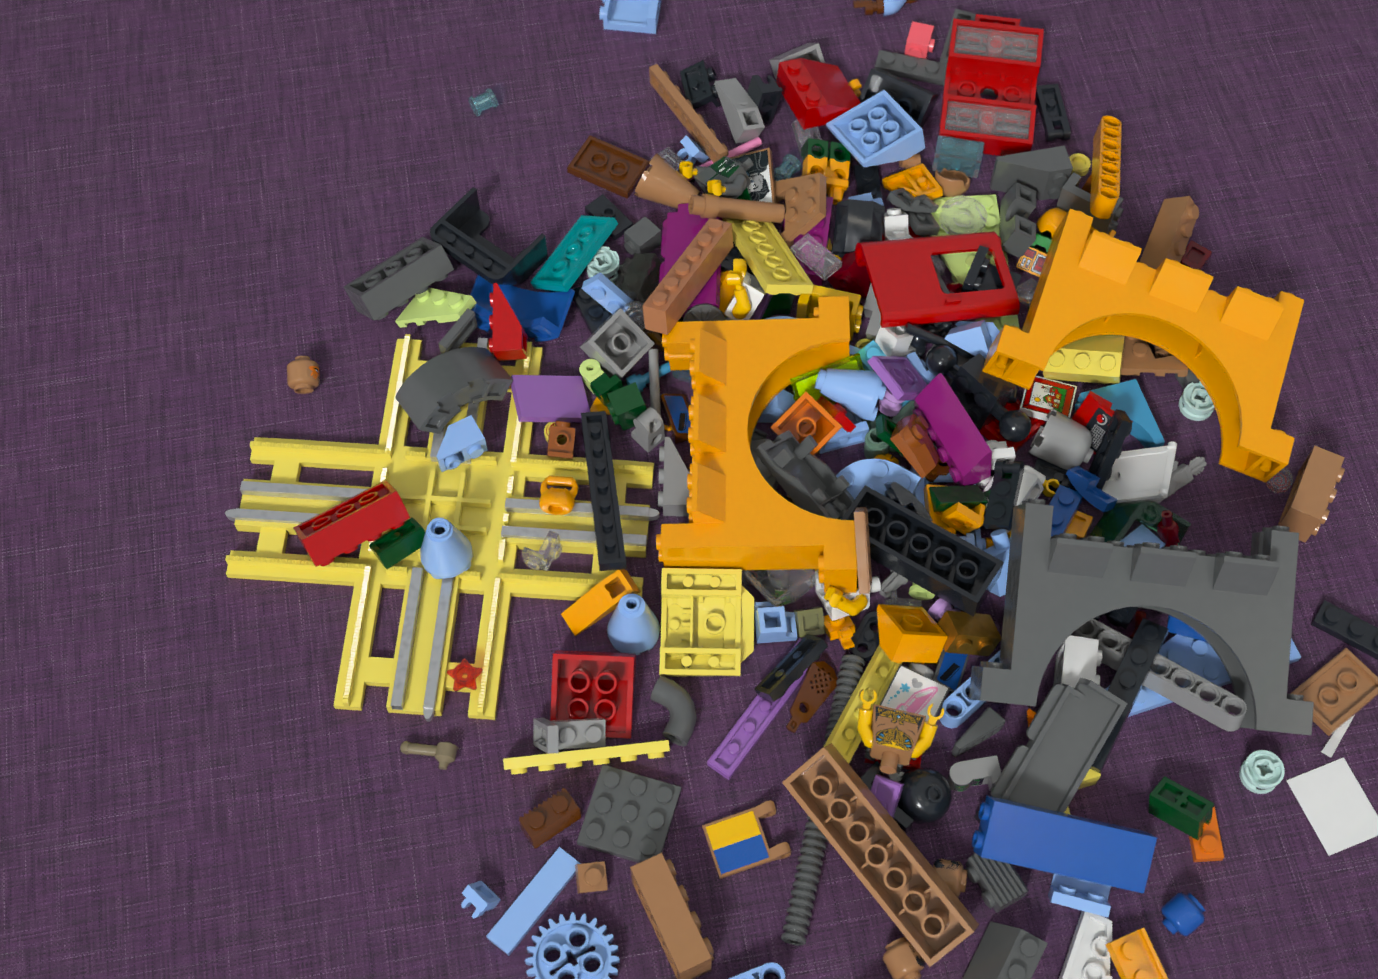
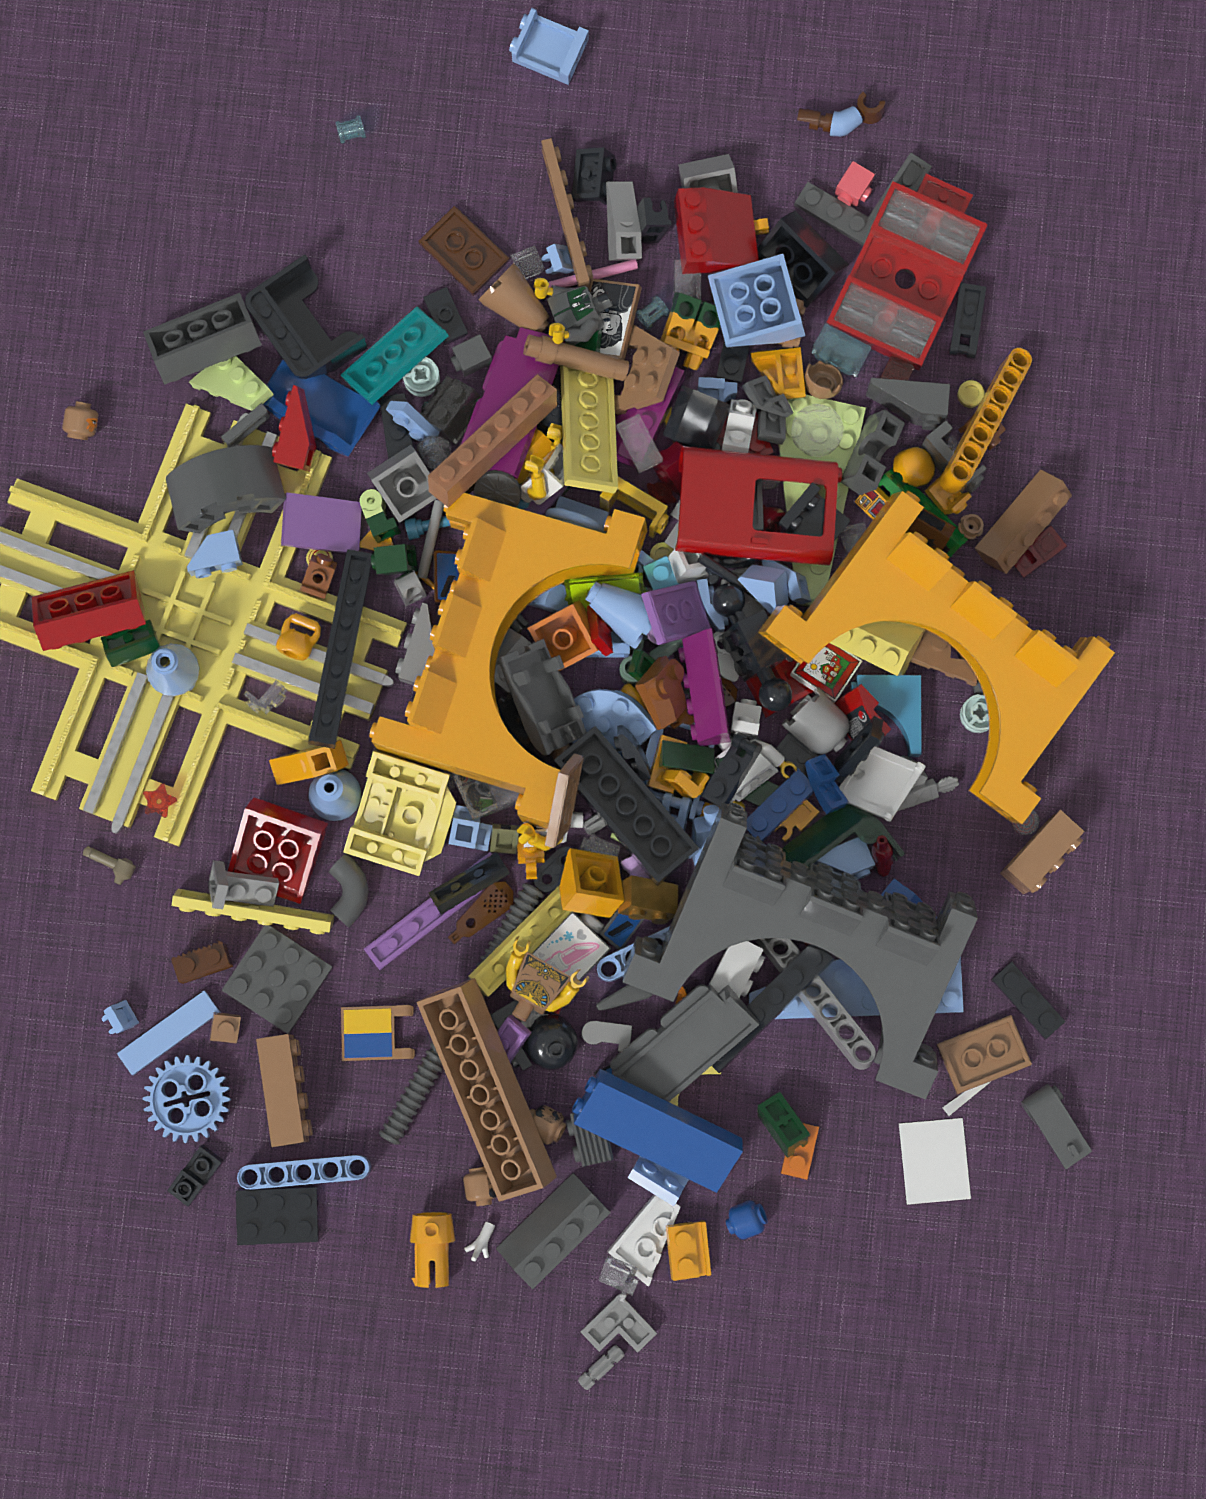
camera: 15 degrees right, 20 degrees up
(1262, 771) = (876, 1111): light aqua wheel -> none

